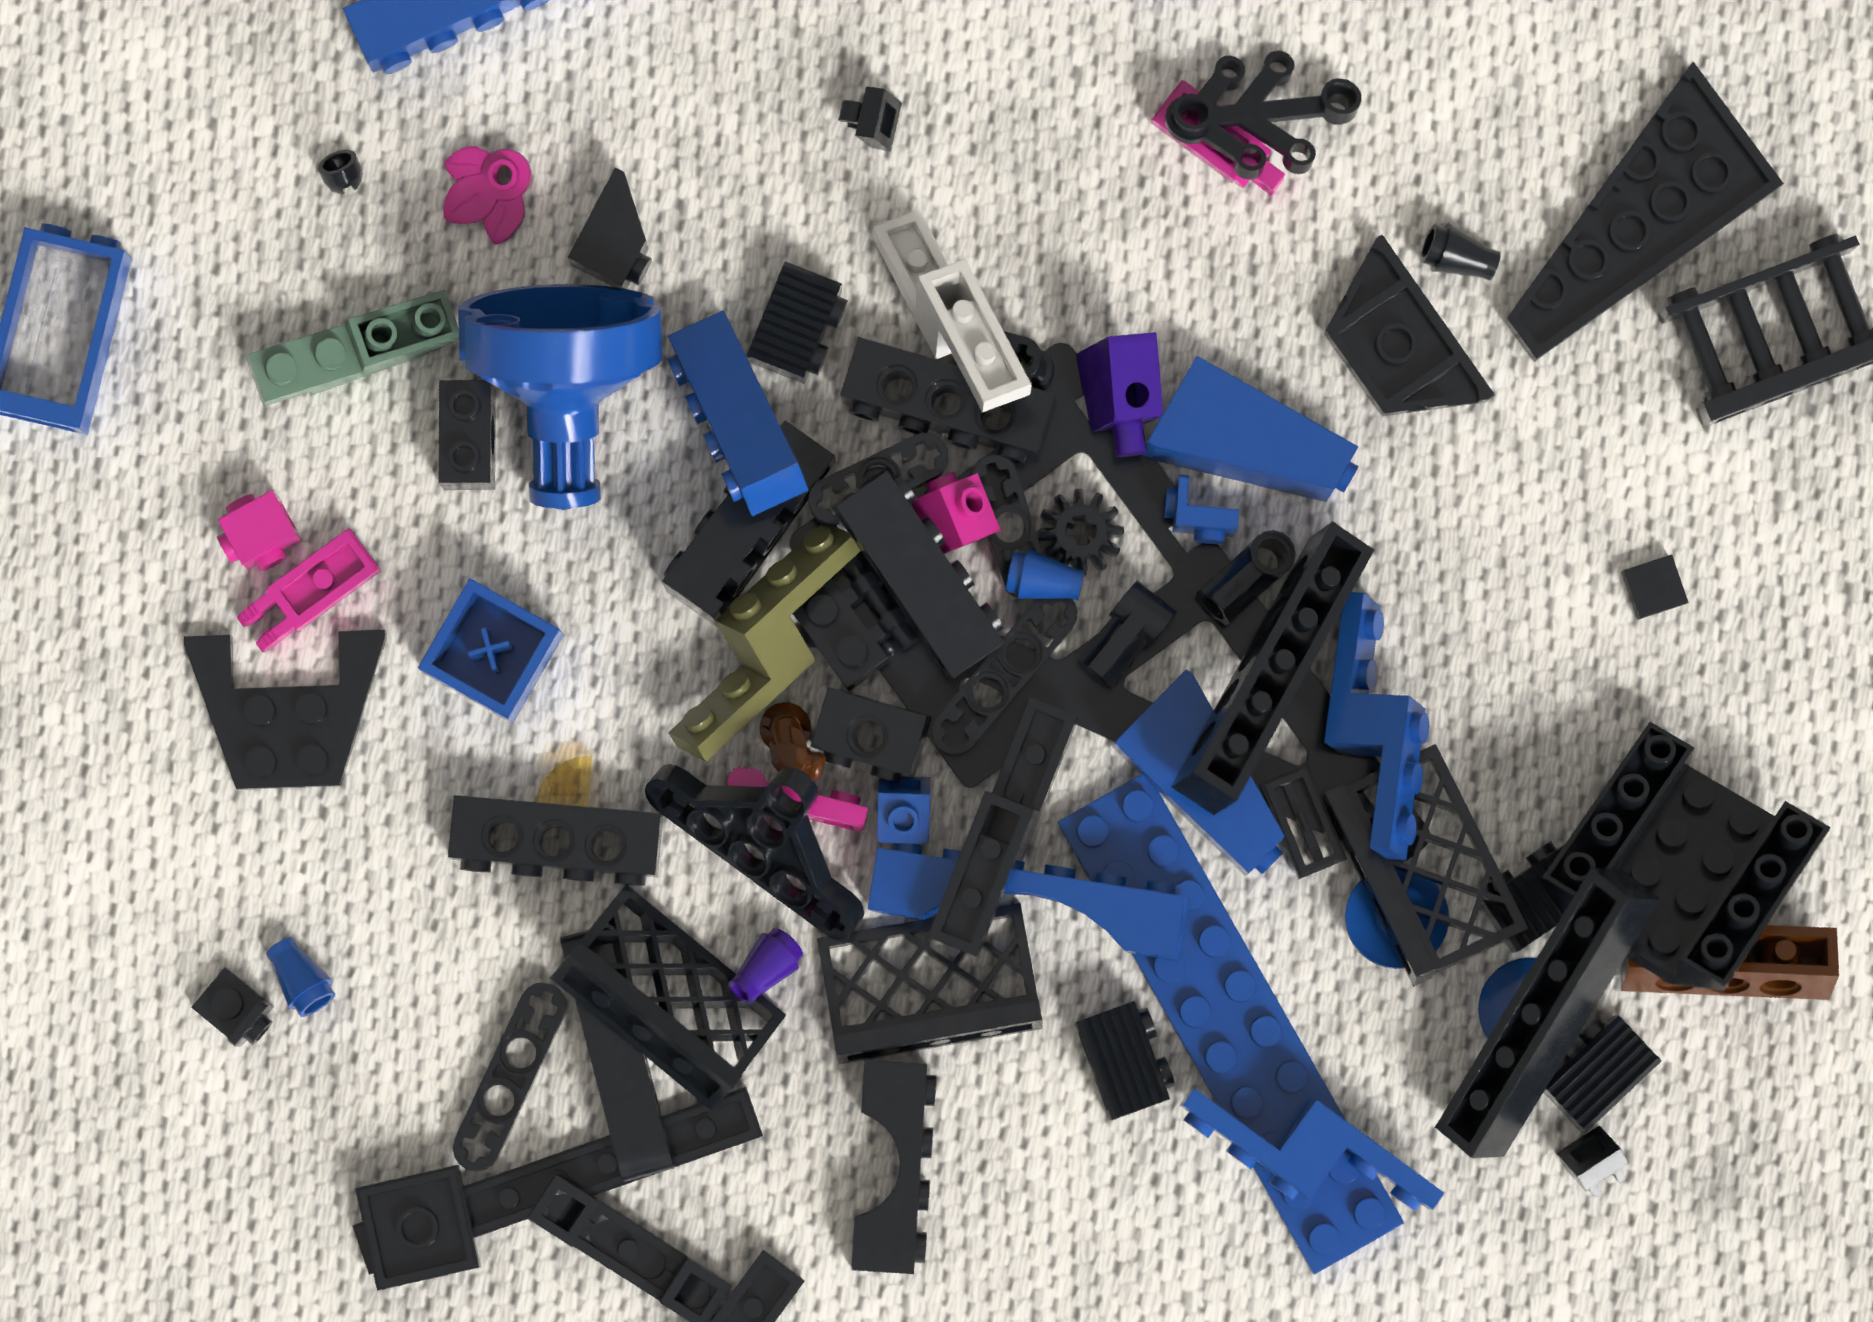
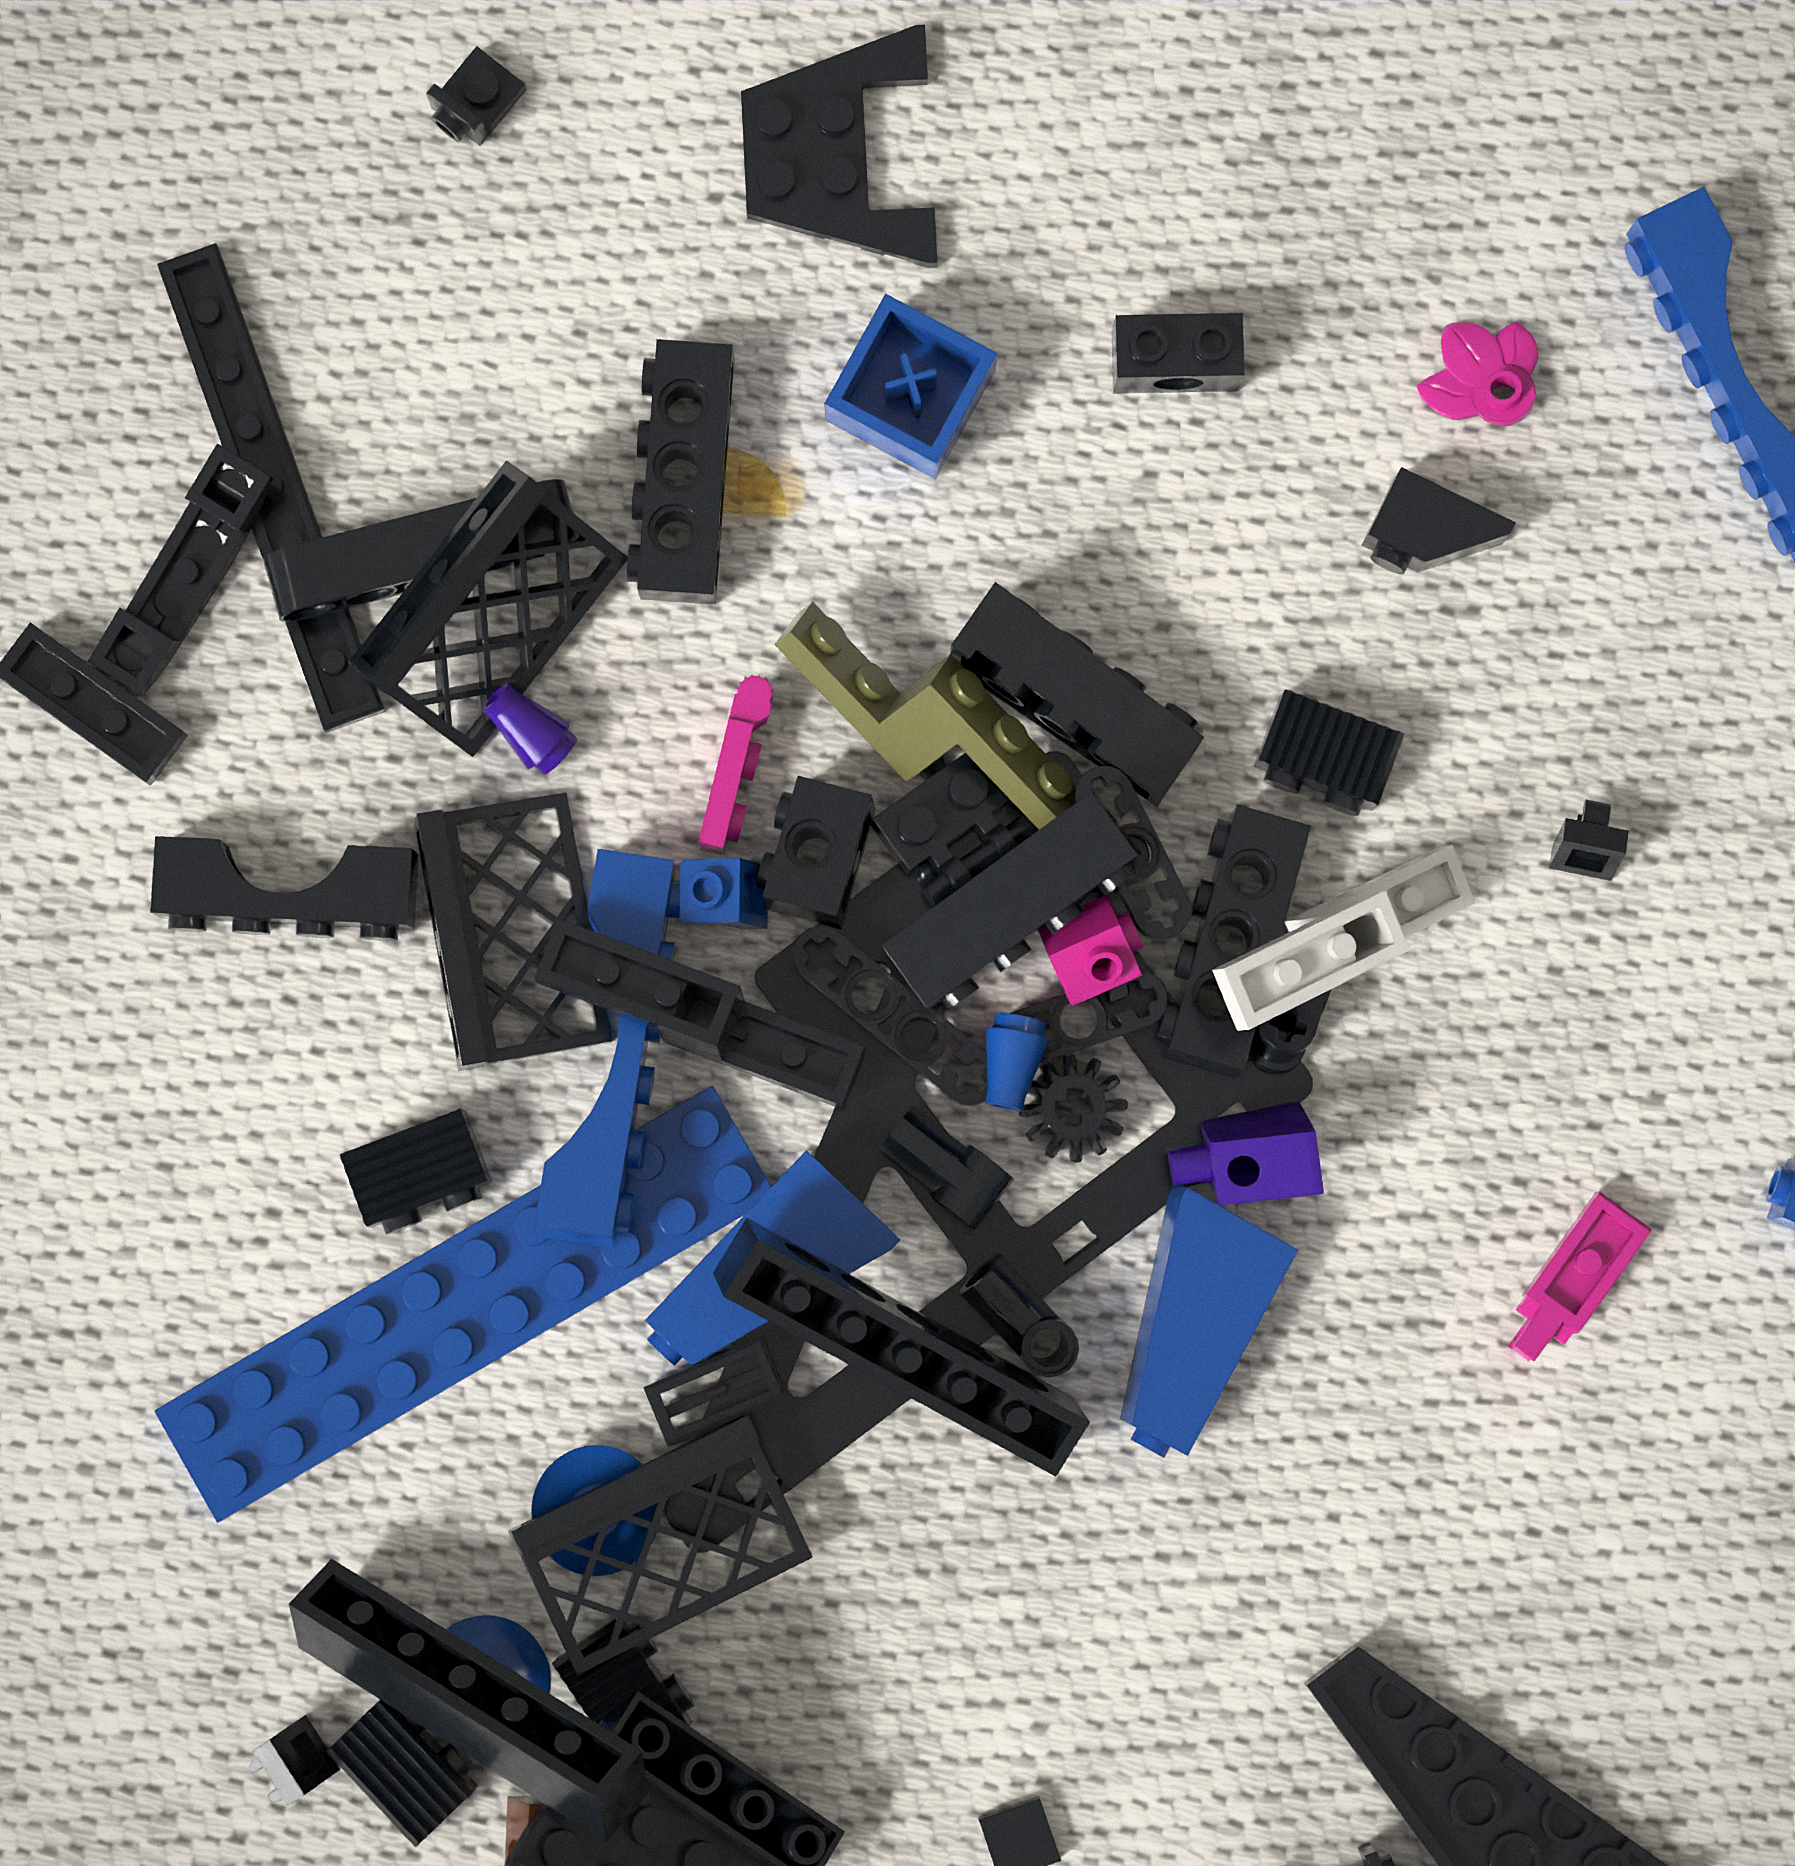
camera: 90 degrees right, 0 degrees up
(257, 531) = (1054, 107): dark pink brick -> none
(300, 978) = (510, 174): blue cone -> none
(312, 587) = (987, 176): dark pink hinge -> none
(341, 171) = (1501, 196): black hinge -> none
(354, 349) = (1280, 215): sand green slope -> none
(418, 1227) = (211, 318): black tile -> none
(516, 1079) = (398, 421): black beam -> none
(561, 357) = (1275, 455): blue piece -> none
(737, 414) = (1207, 675): blue brick -> none
(784, 852) = (698, 731): black beam -> none
(786, 732) = (819, 749): reddish brown arm -> none
(1206, 523) = (1087, 1264): blue bracket -> none
(1256, 114) = (1608, 1323): black plant -> none
(1310, 1151) = (299, 1400): blue bracket -> none
(1376, 726) = (832, 1481): blue bracket -> none
(1400, 342) = (1324, 1510): black wing -> none
(1457, 253) = (1440, 1583): black cone -> none

